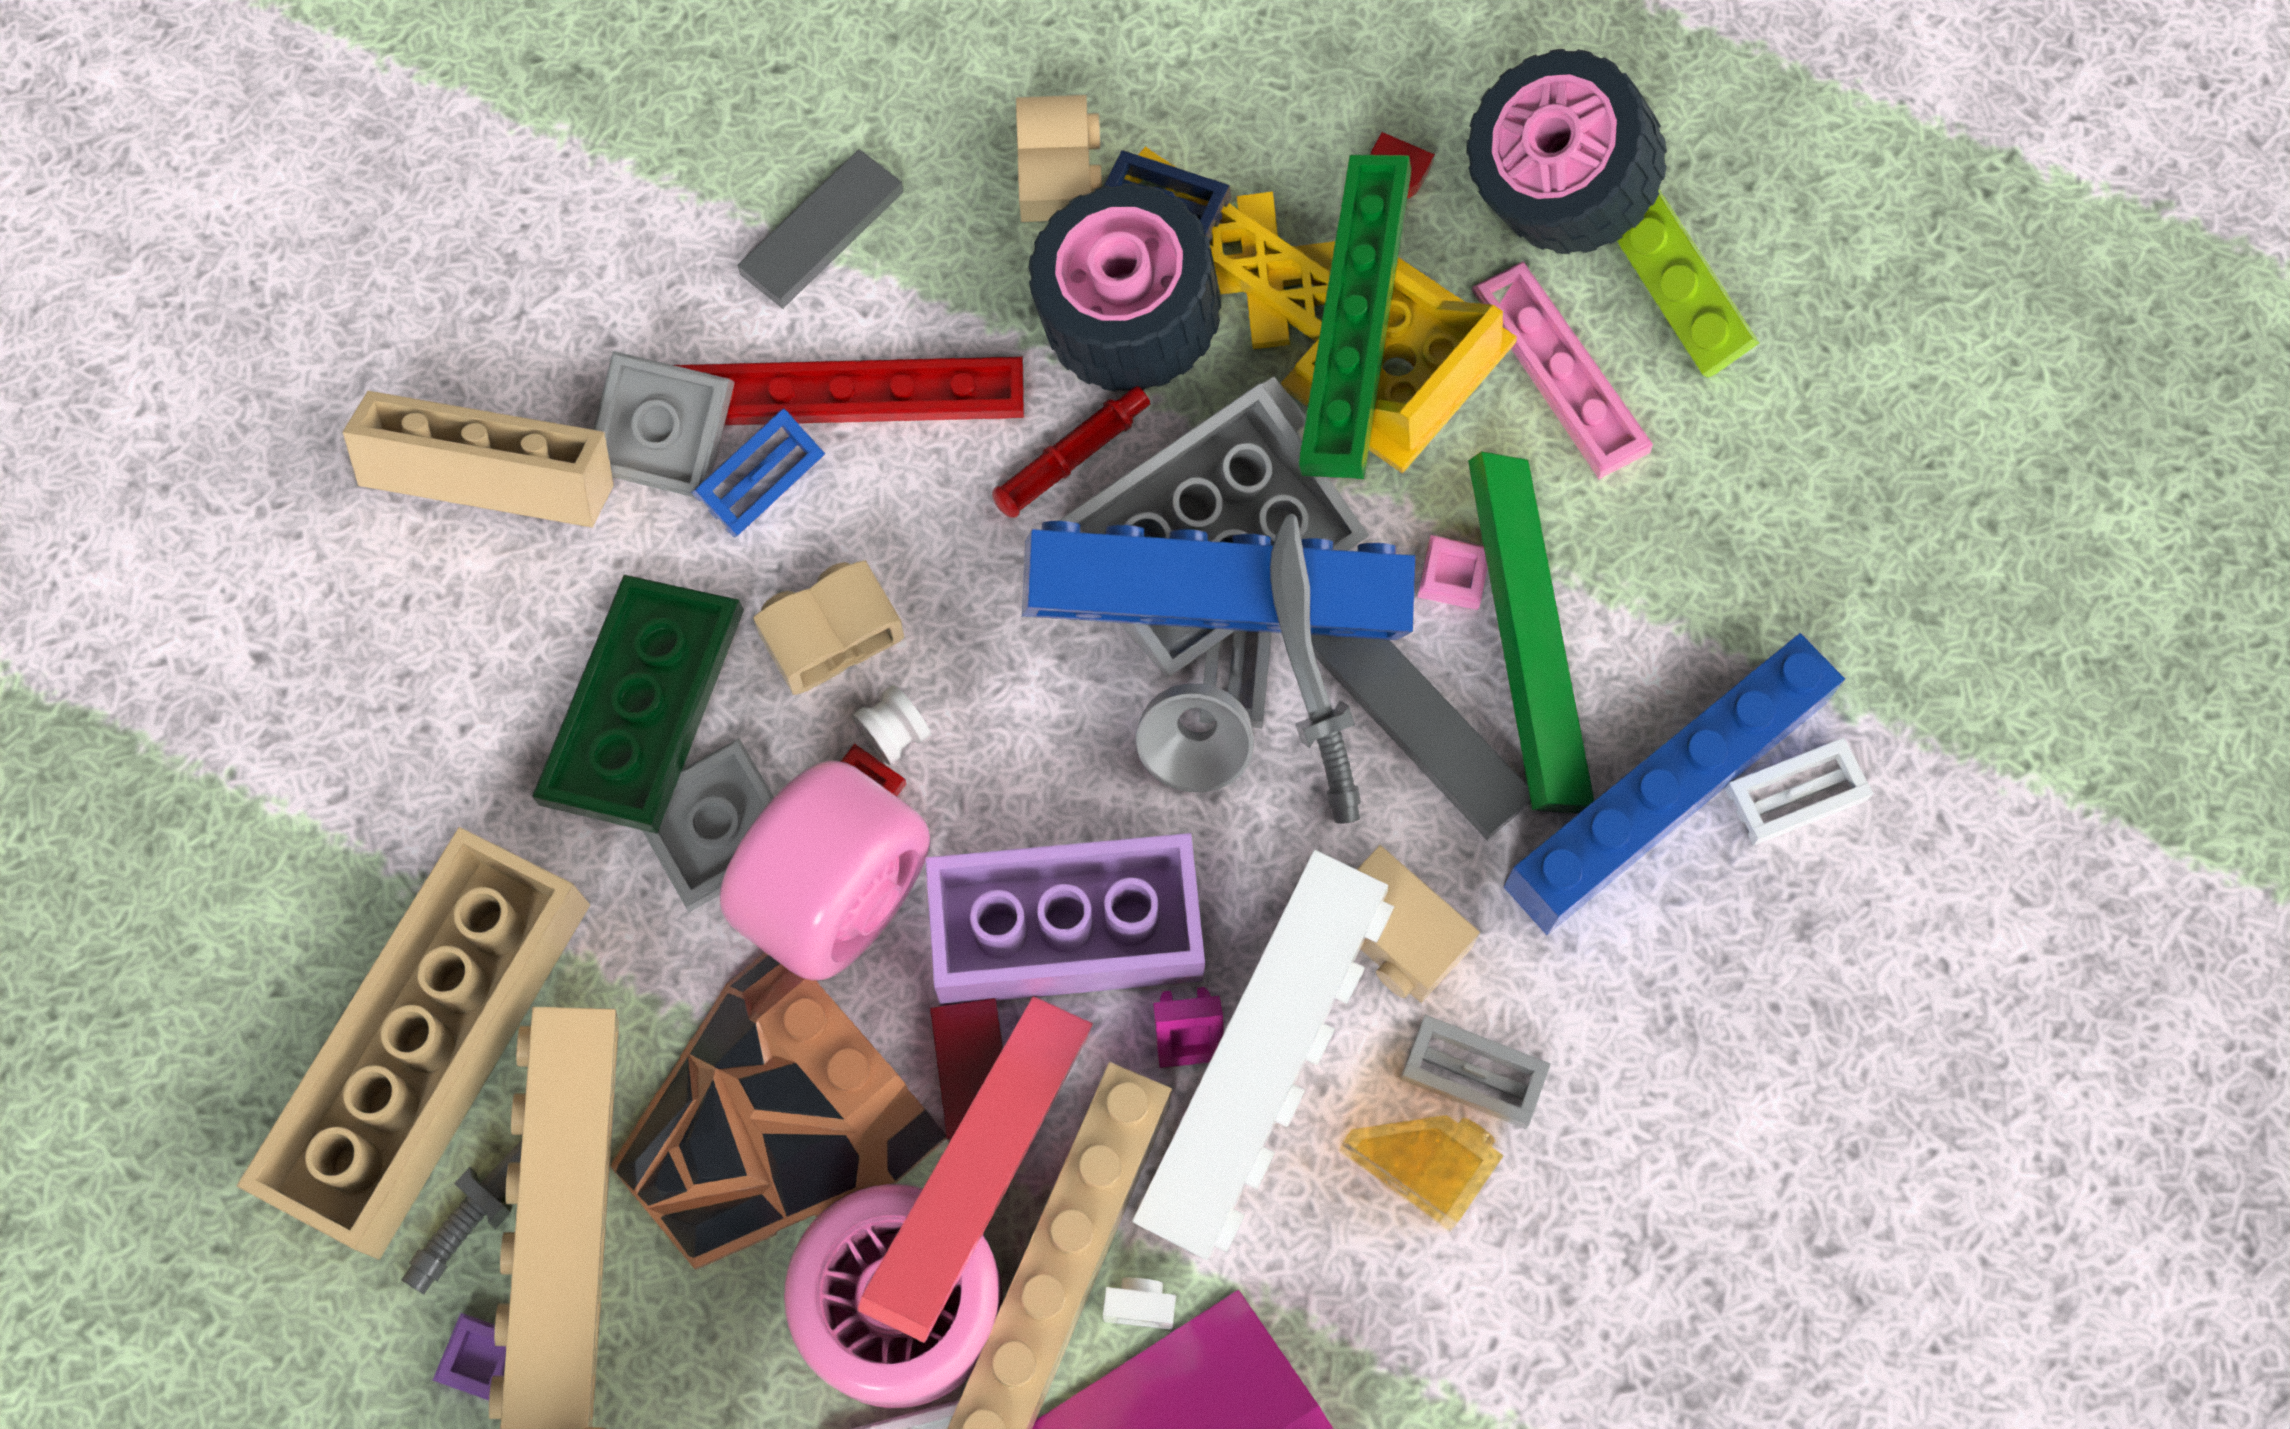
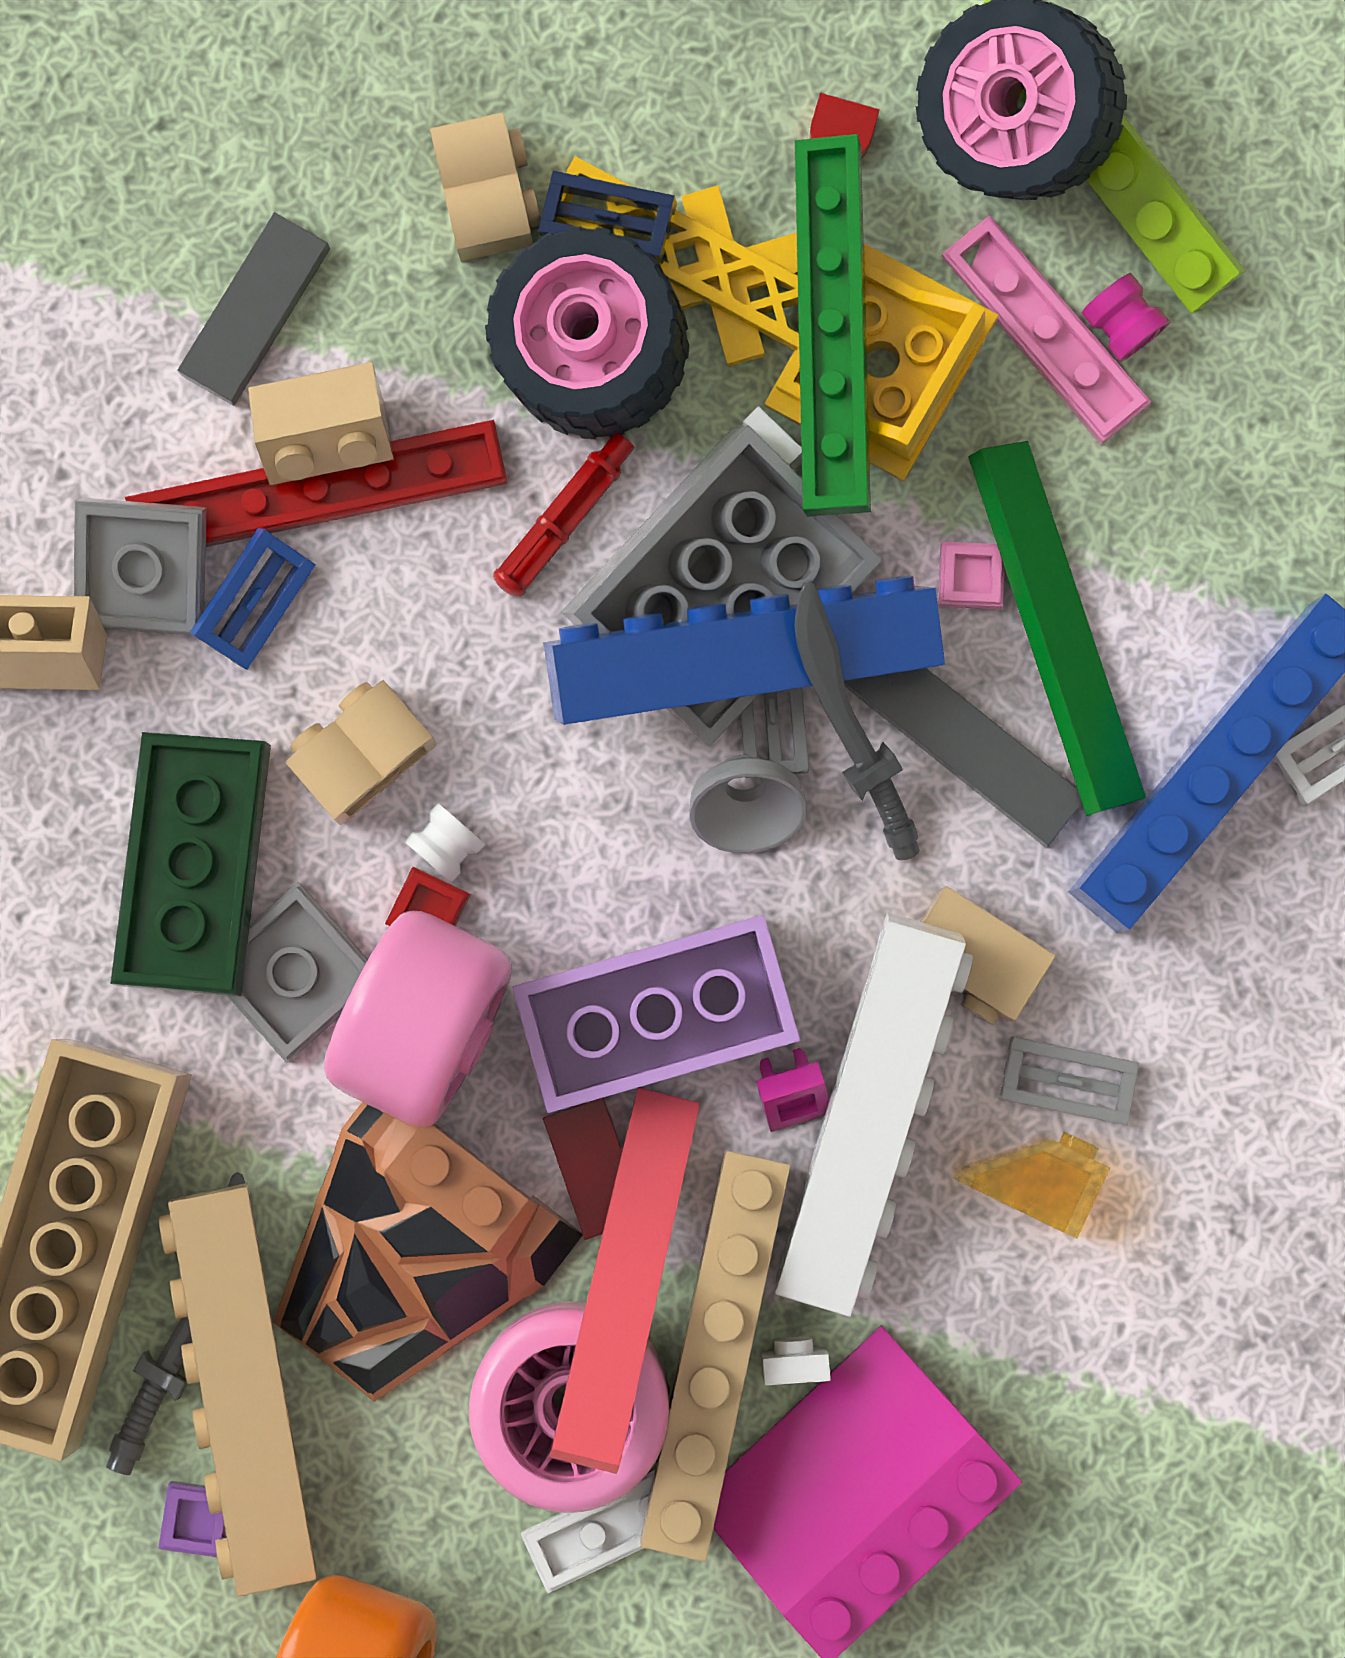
camera: 10 degrees left, 15 degrees up
(858, 327) = (320, 423): none -> tan brick
(1638, 364) = (1125, 317): none -> dark pink wheel

